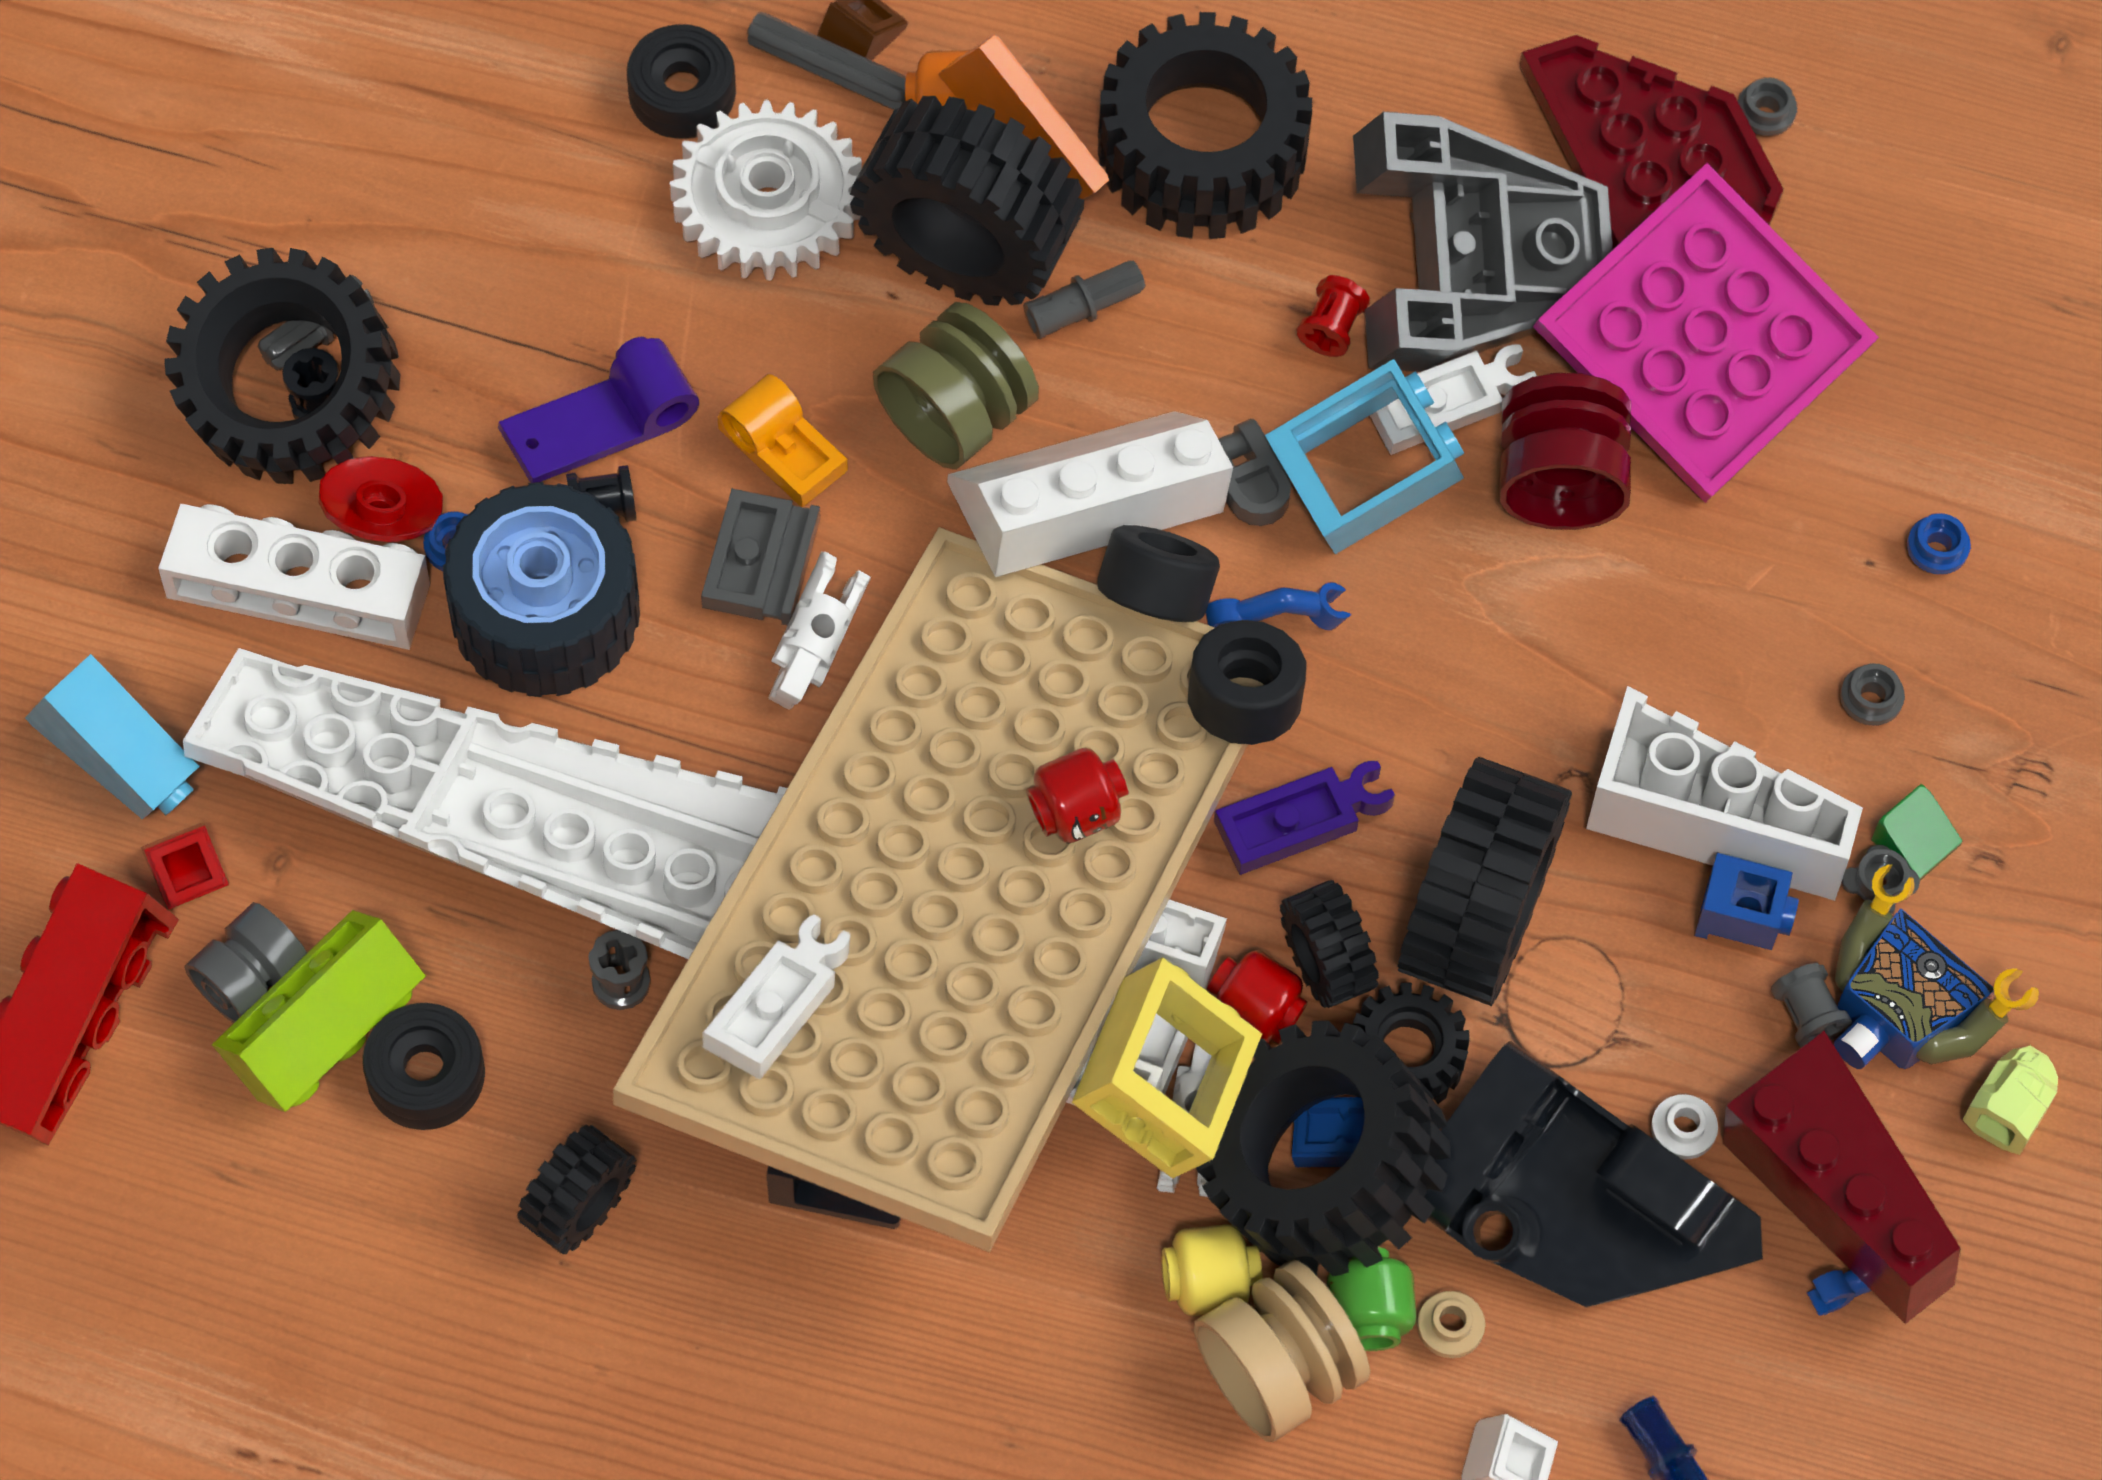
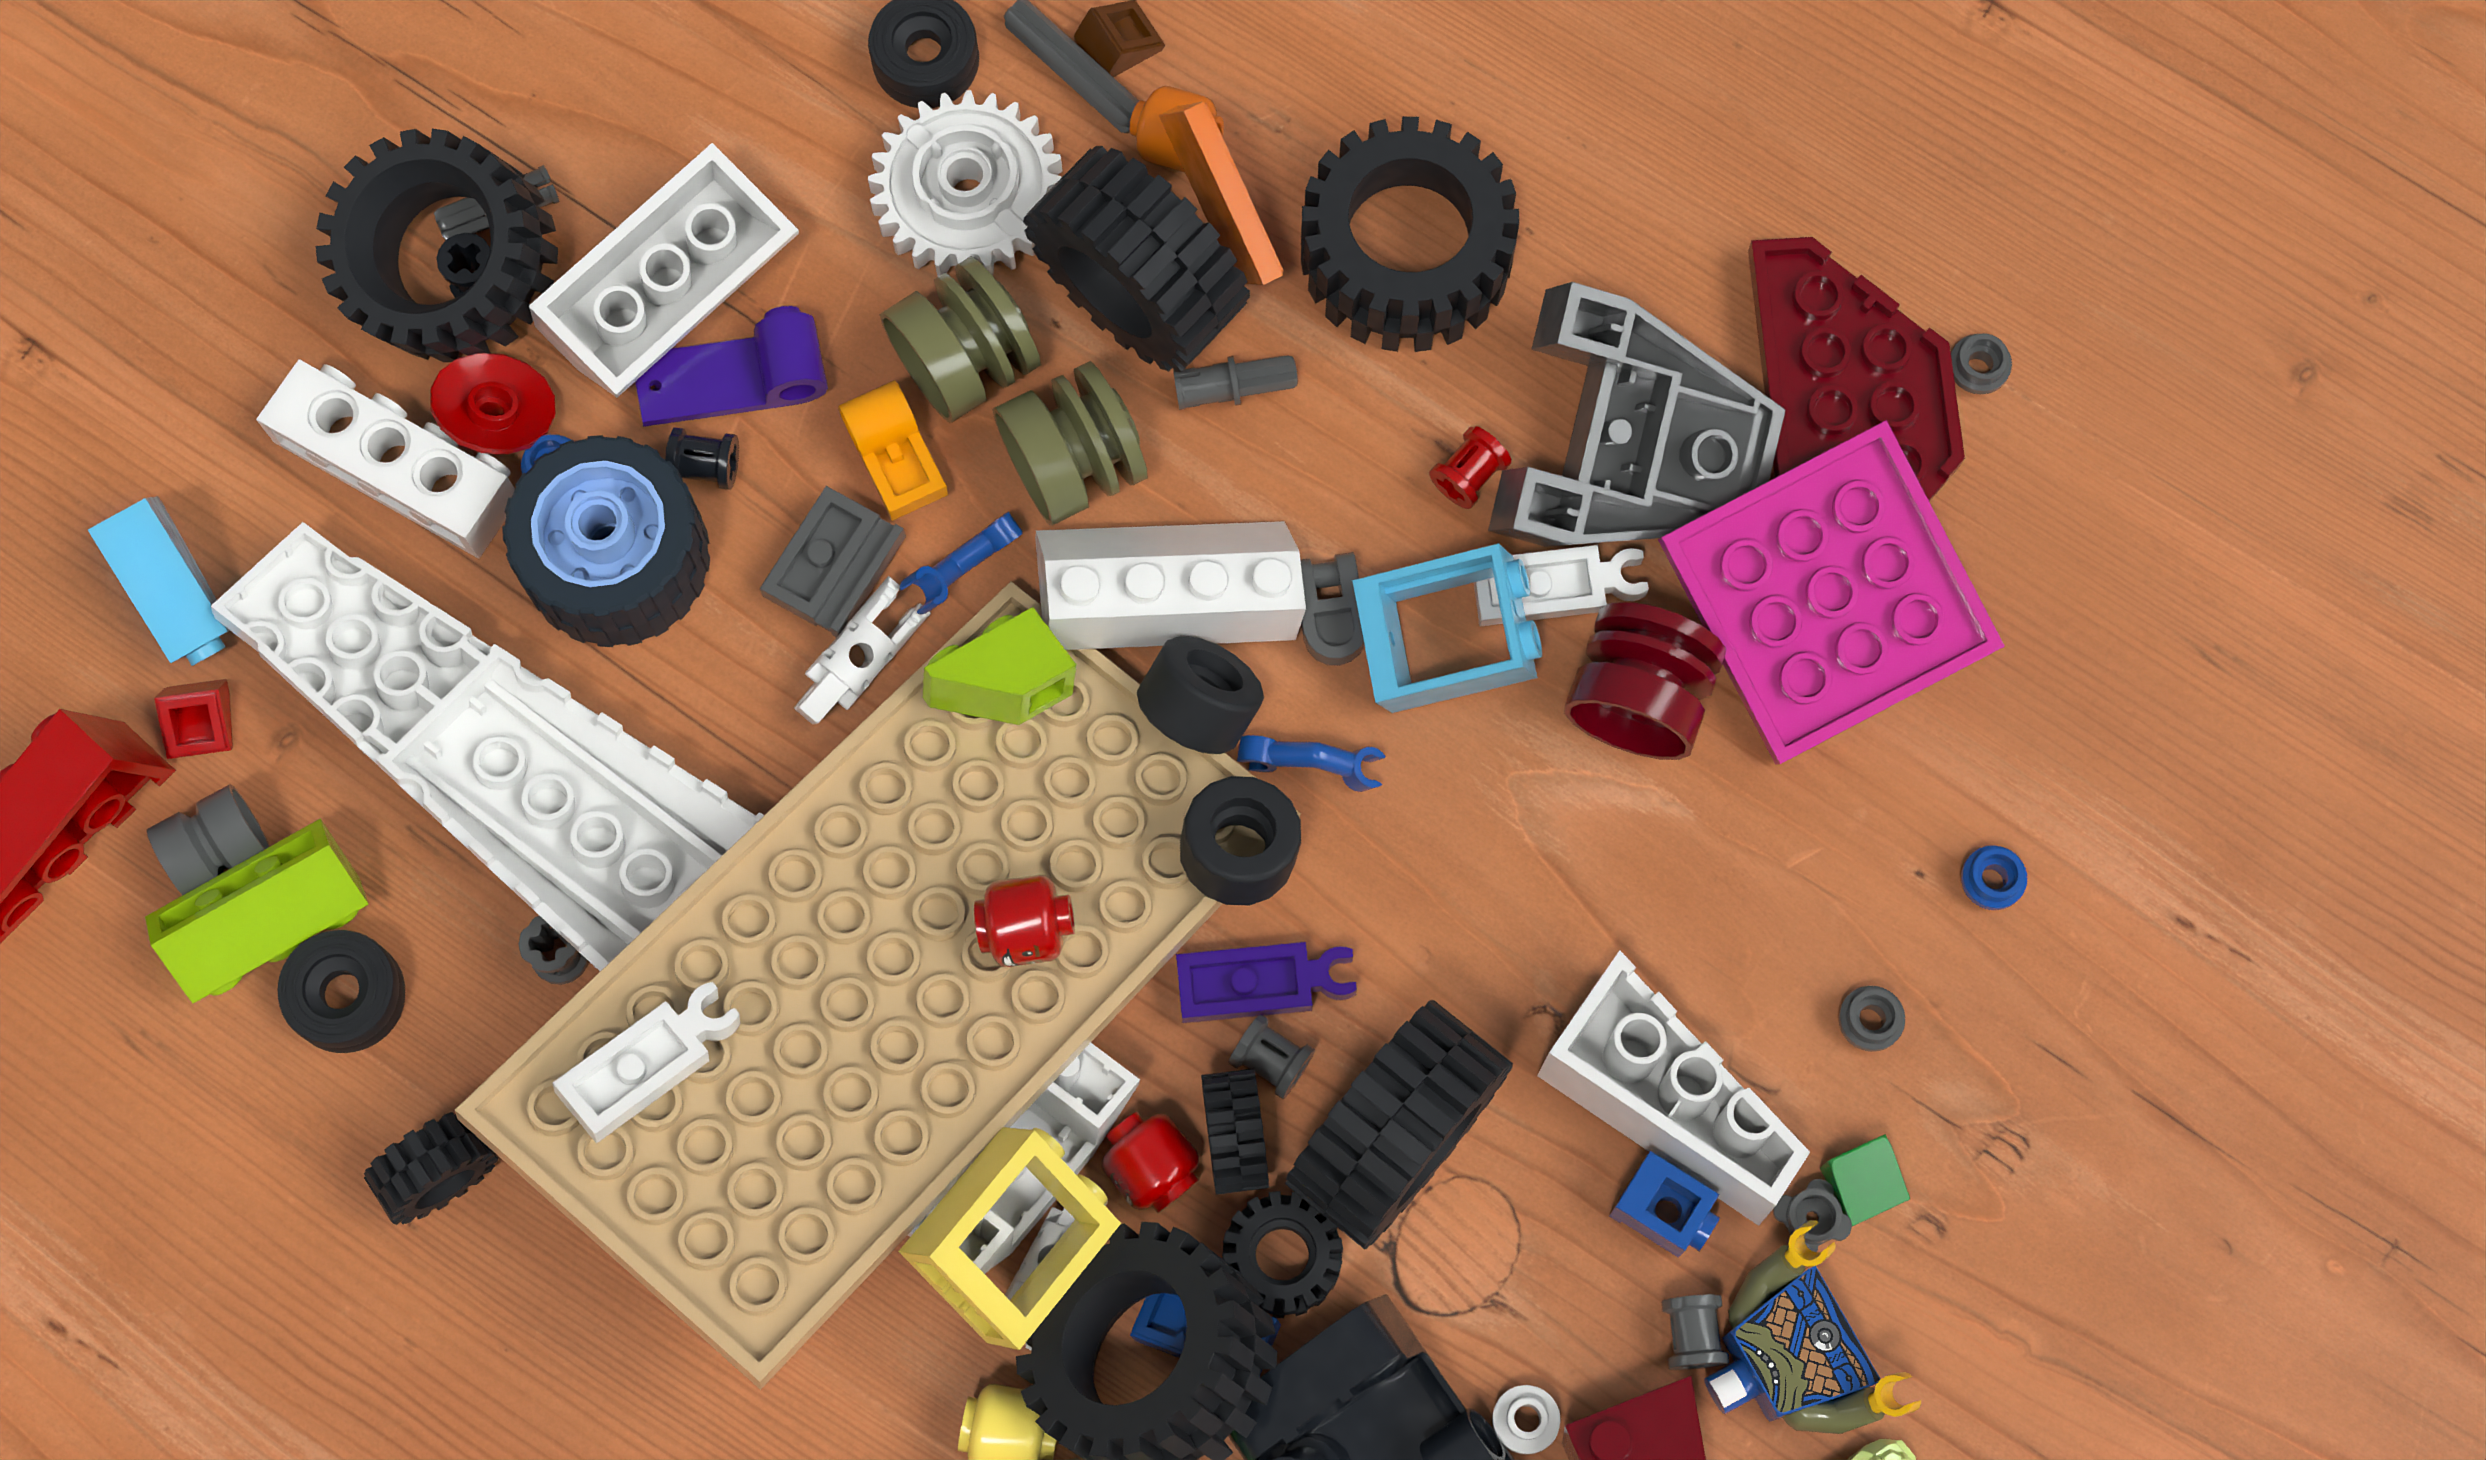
camera: 20 degrees right, 10 degrees up
(507, 338) = (661, 272): none -> white slope
(818, 321) = (970, 333): none -> olive wheel
(868, 543) = (937, 579): none -> blue arm
(970, 598) = (1004, 673): none -> lime slope
(1349, 873) = (1271, 1056): none -> dark grey bush

